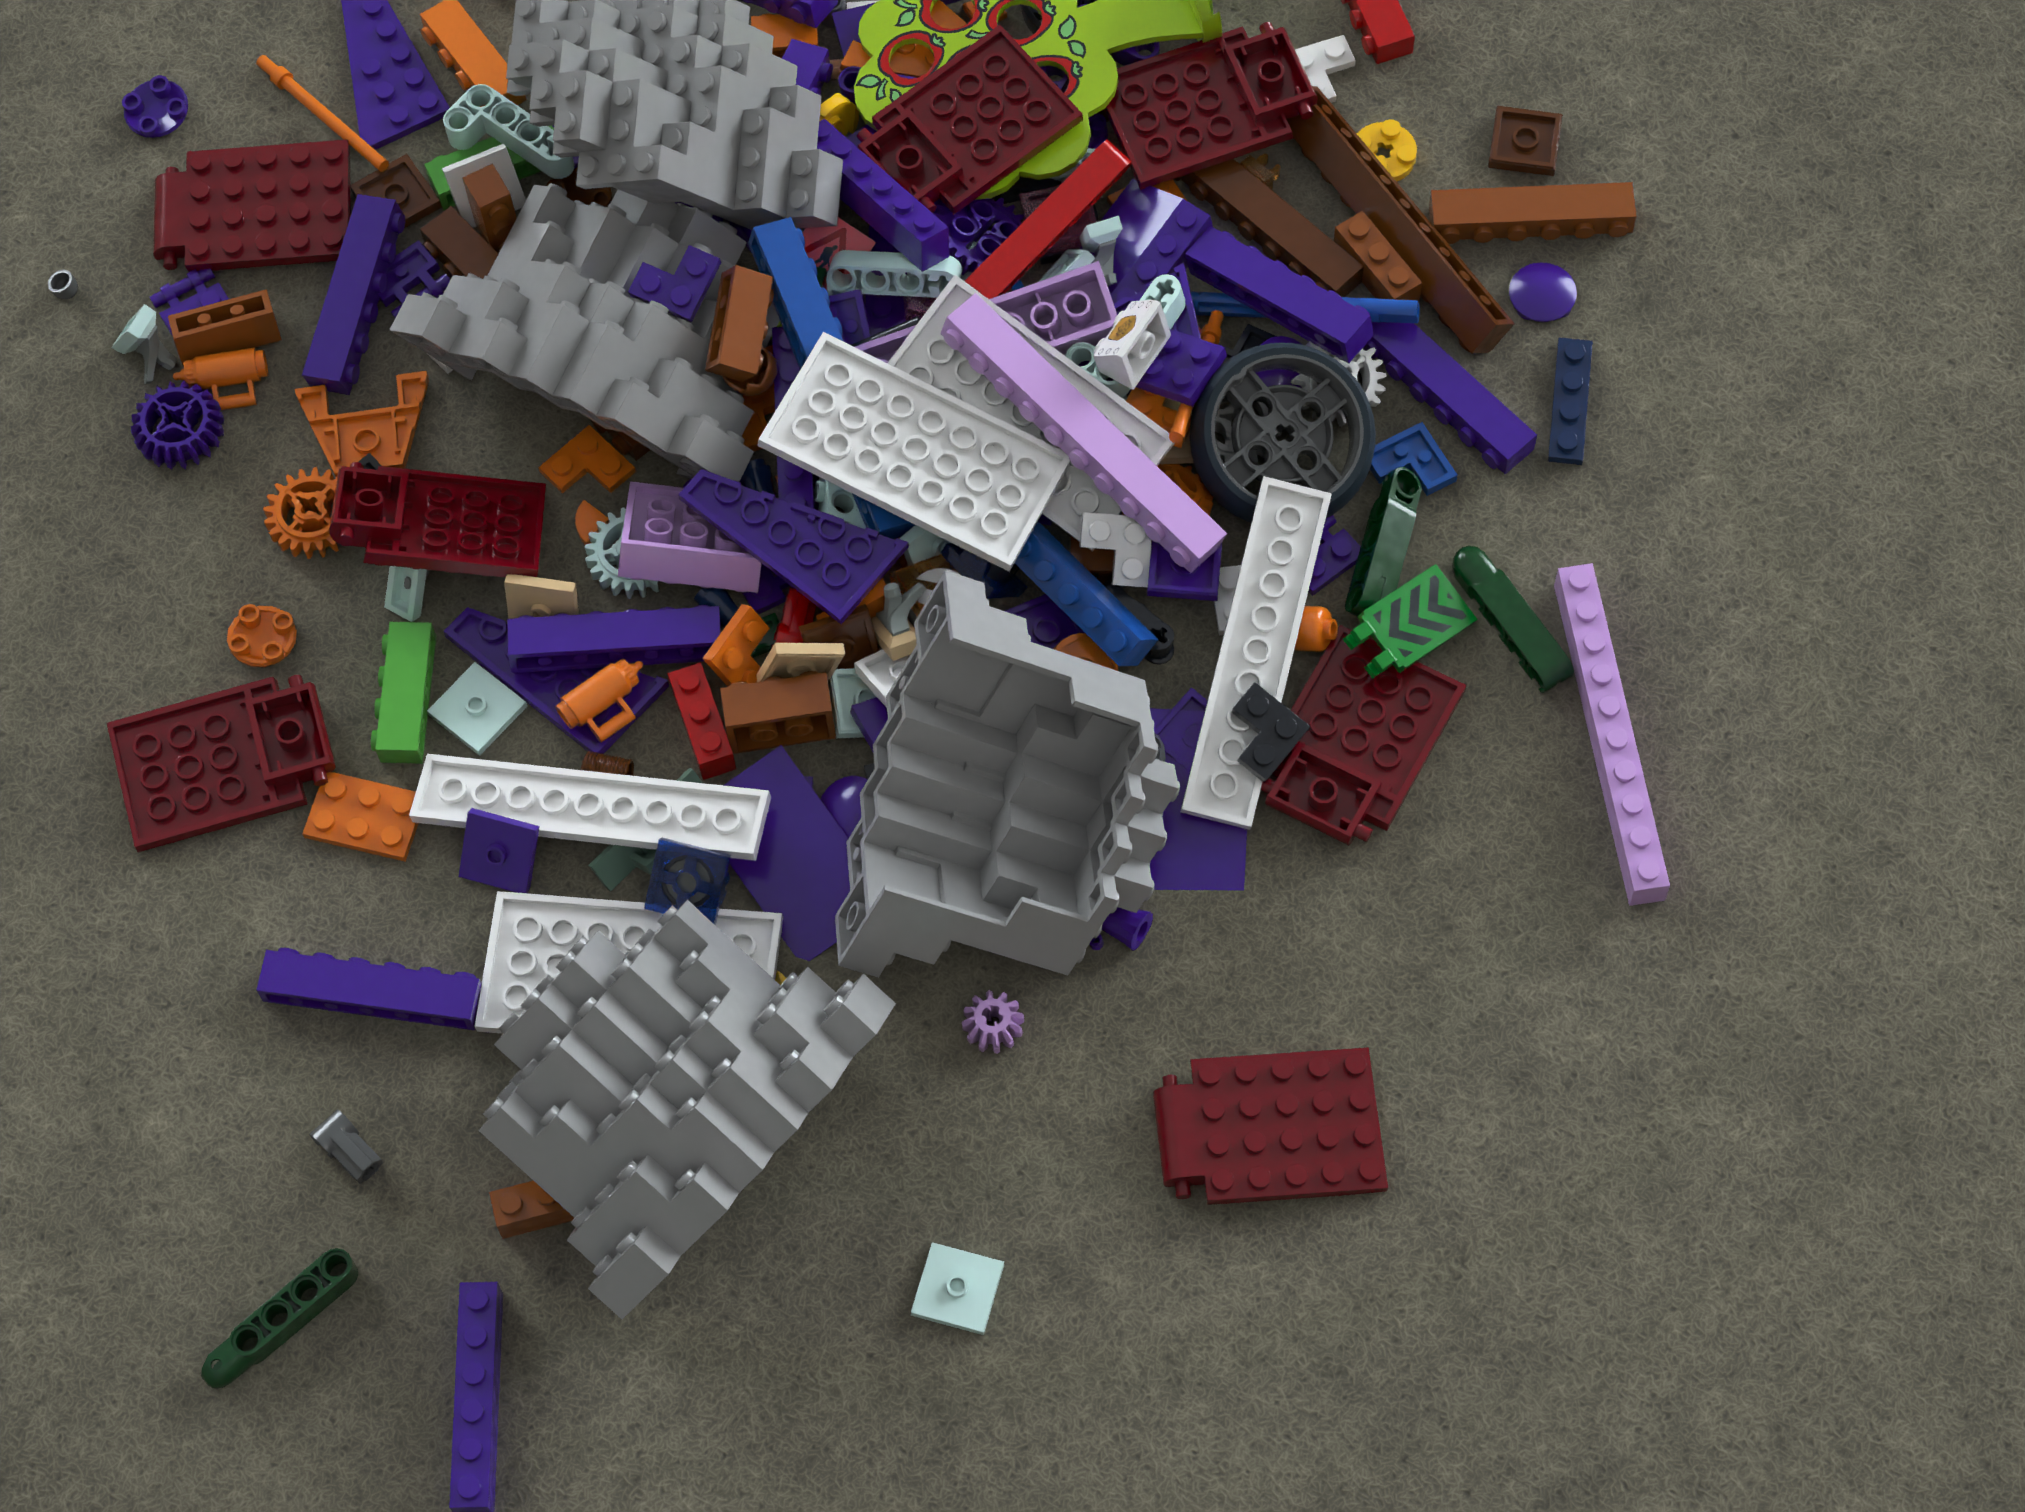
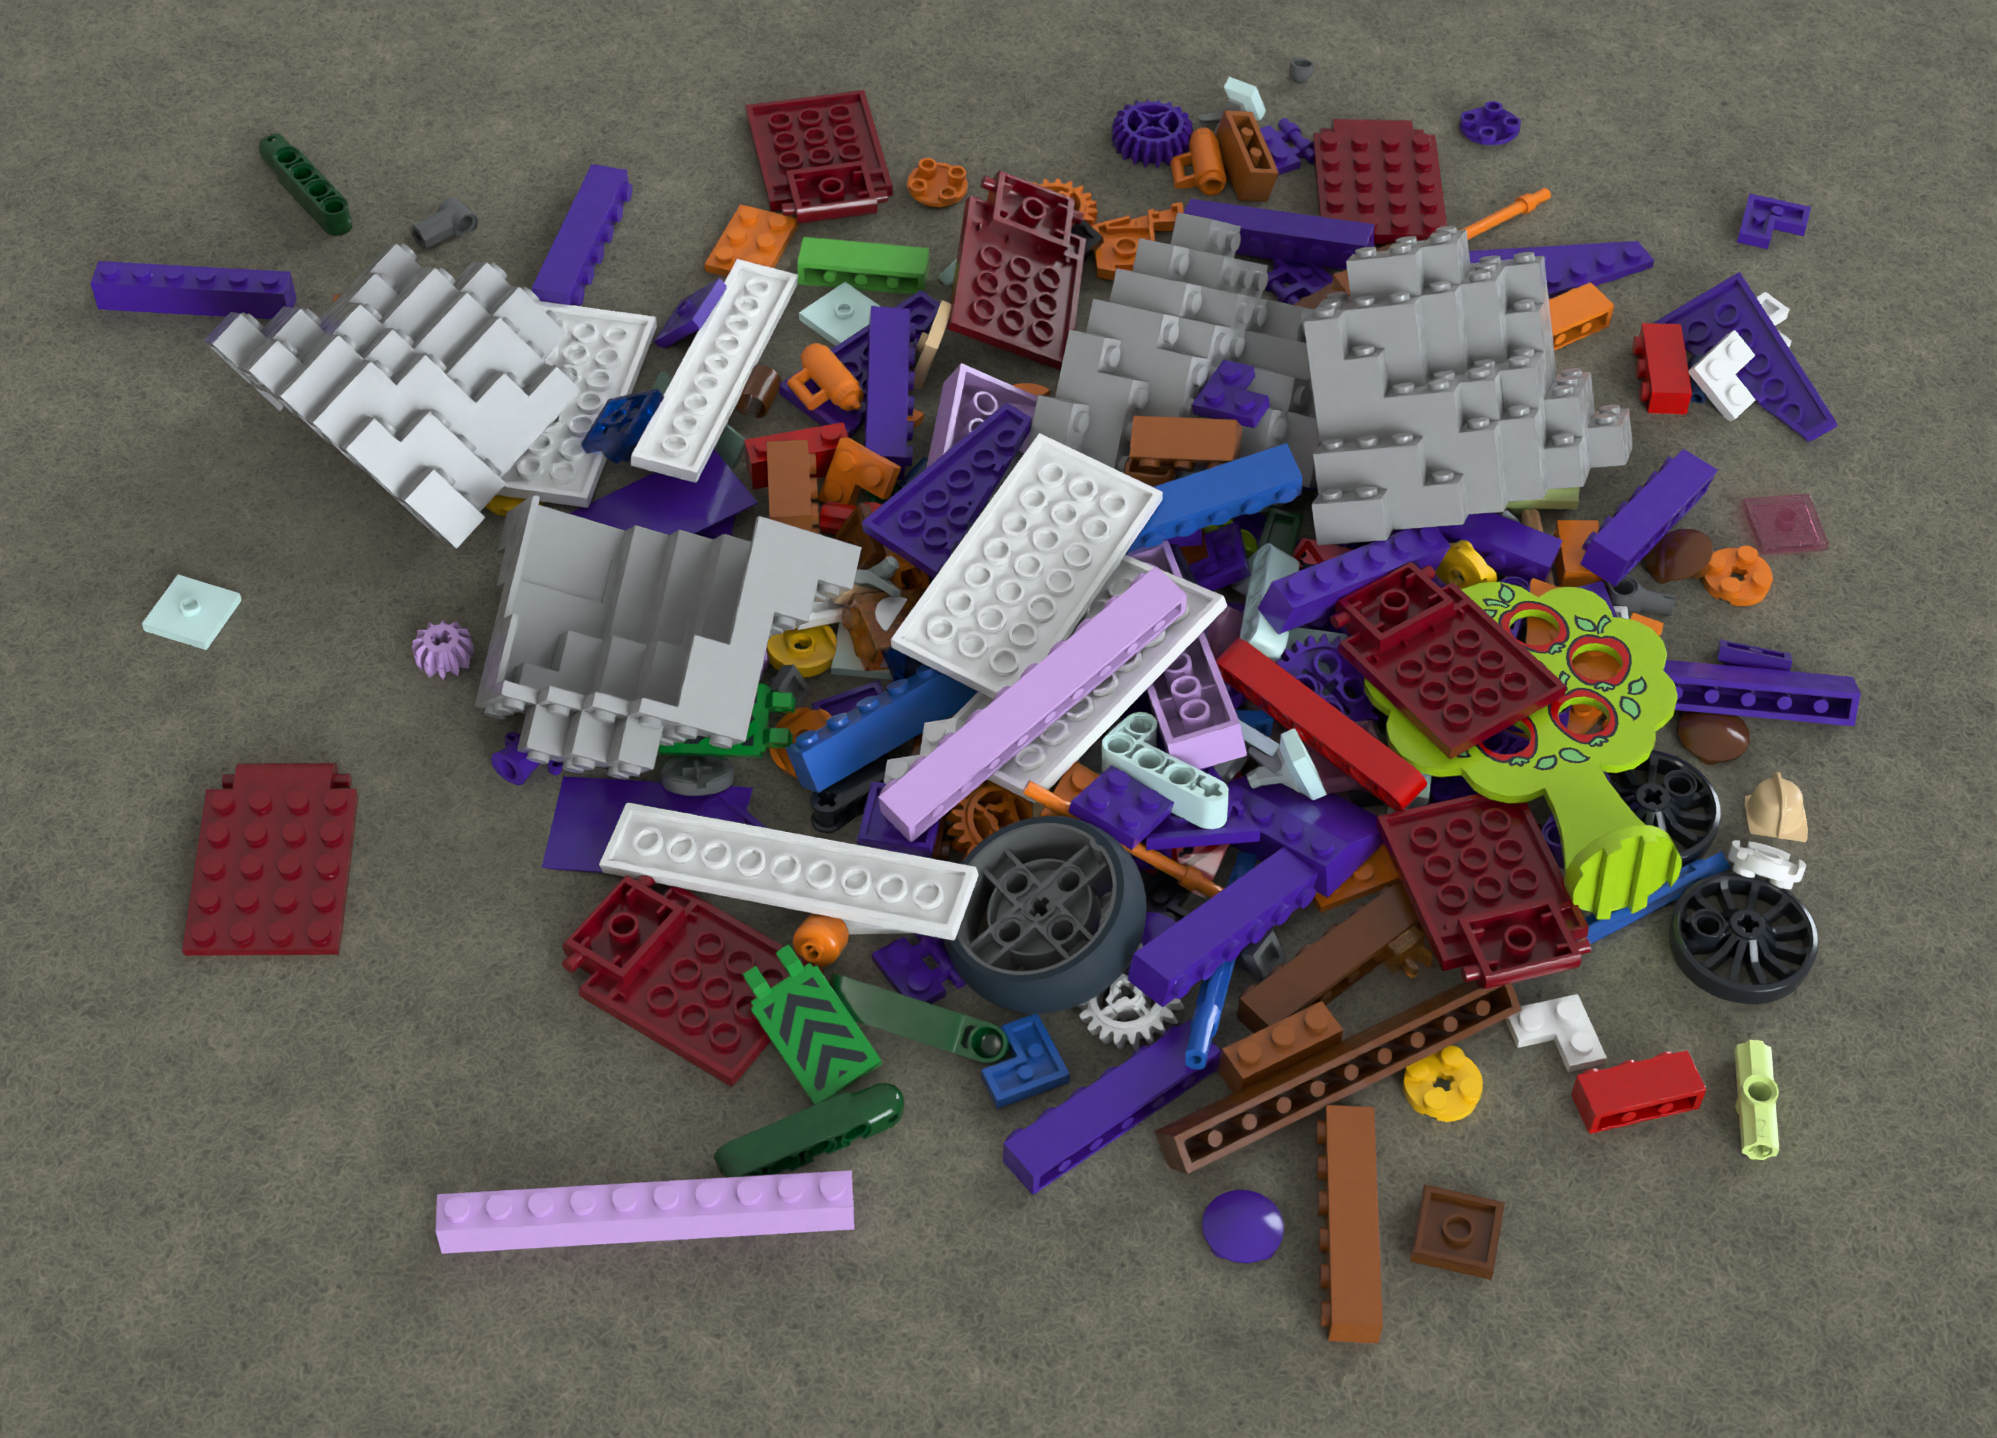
camera: 90 degrees right, 15 degrees down
(795, 658) = (827, 499): tan plate -> none
(1133, 342) = (1132, 745): white slope -> none
(1276, 727) = (695, 880): black plate -> none
(1570, 401) = (1092, 1237): dark blue plate -> none

